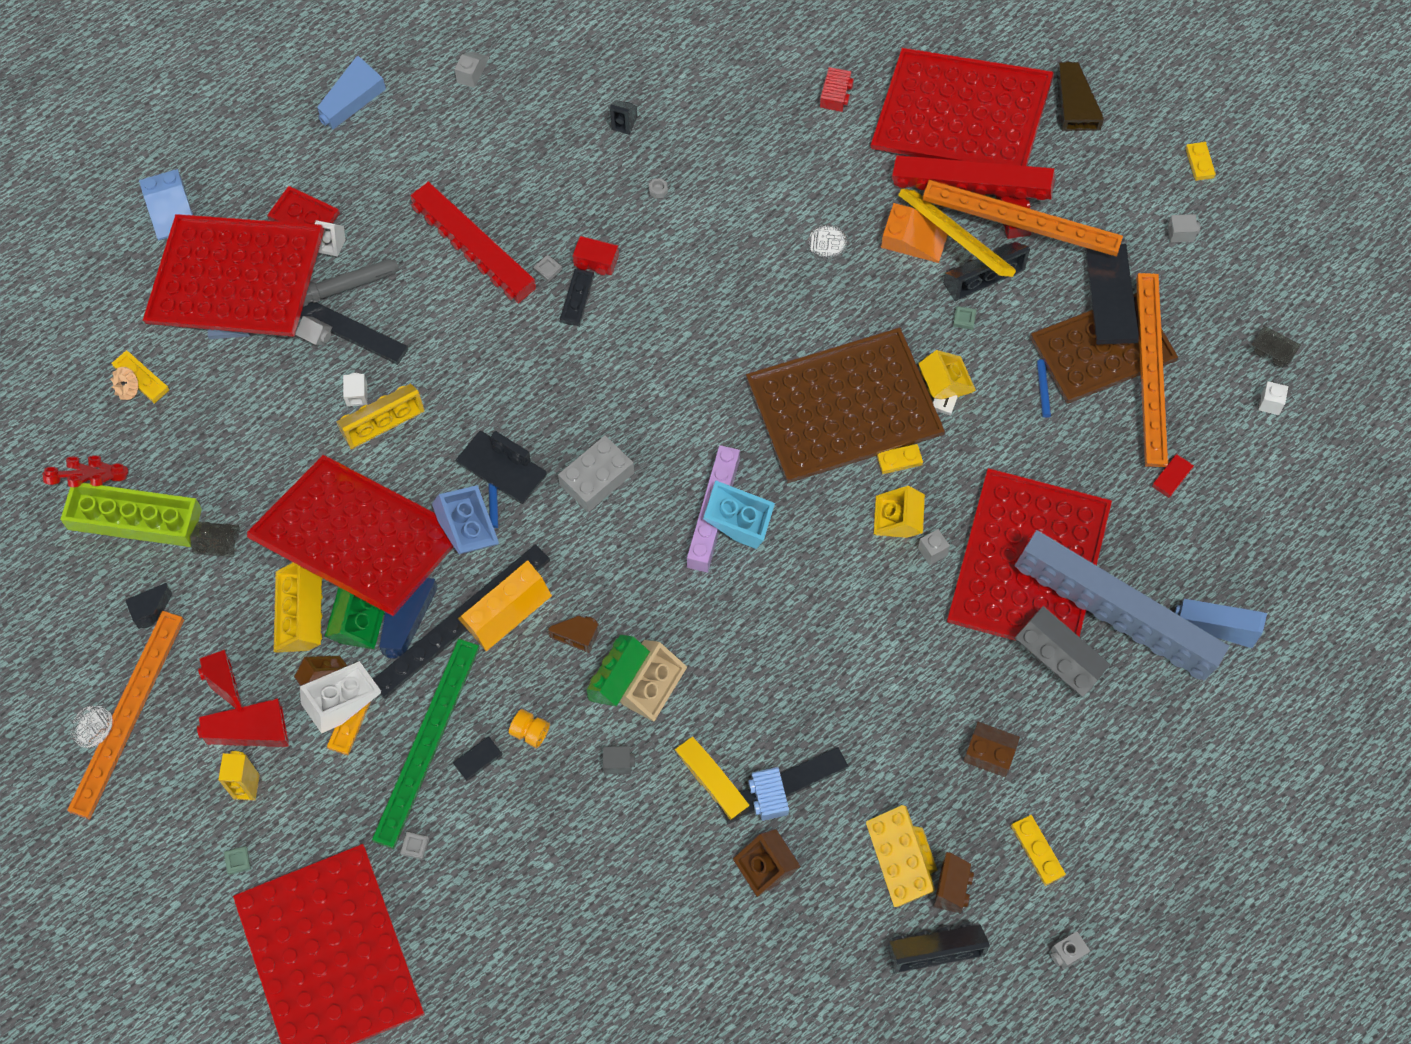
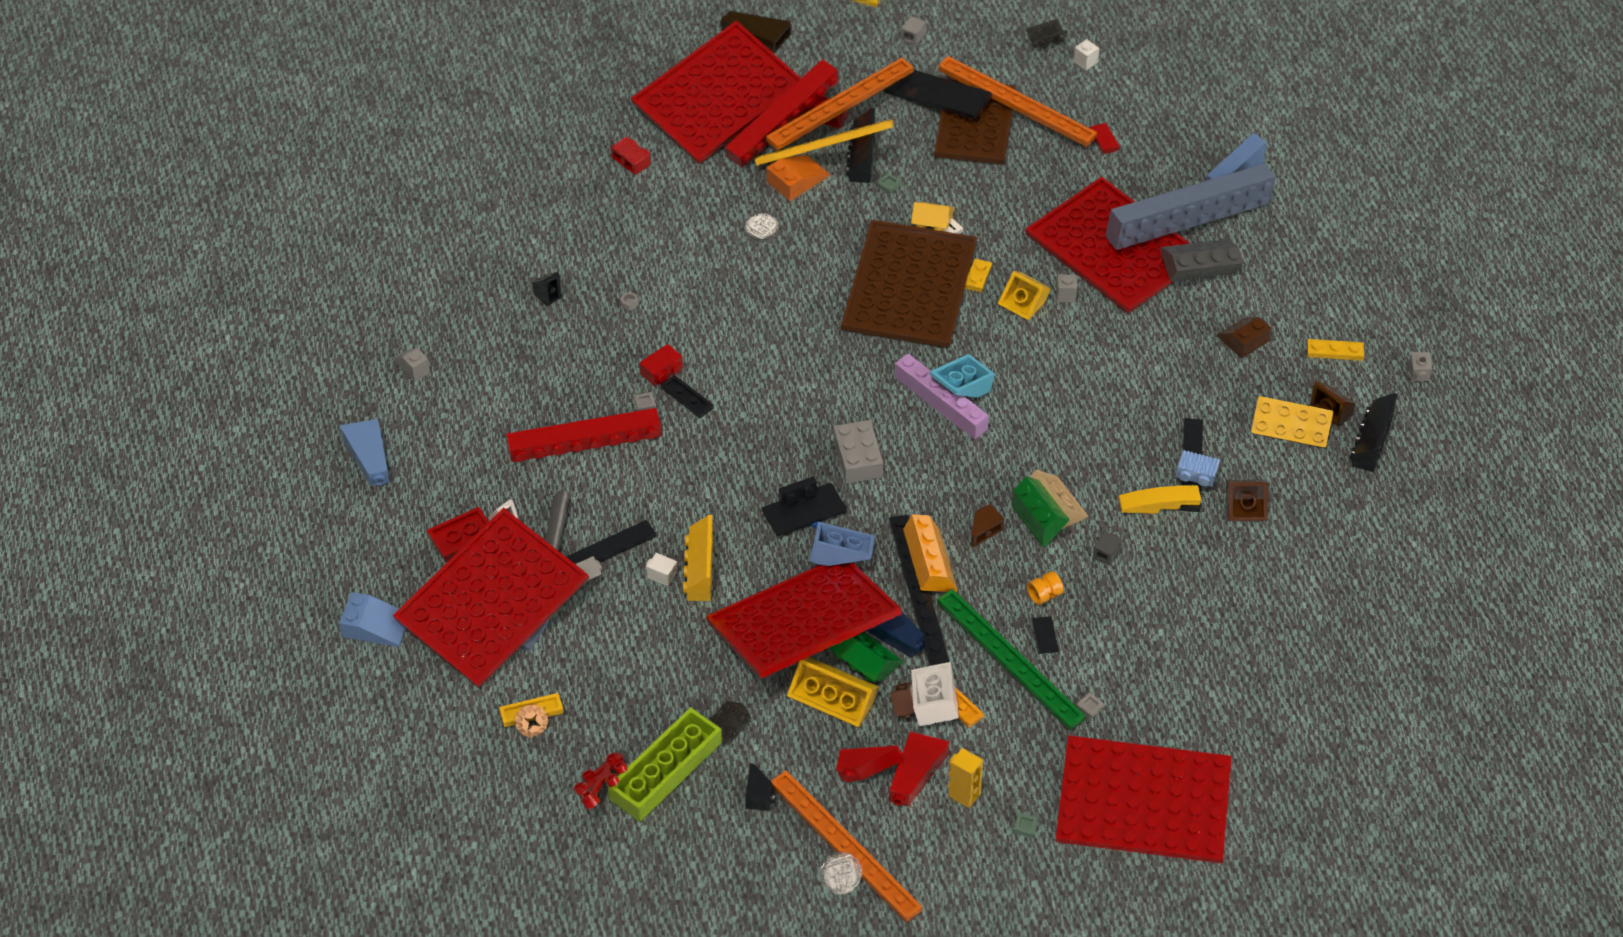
camera: 60 degrees left, 15 degrees down
(1046, 413) = (987, 172): blue bar -> none

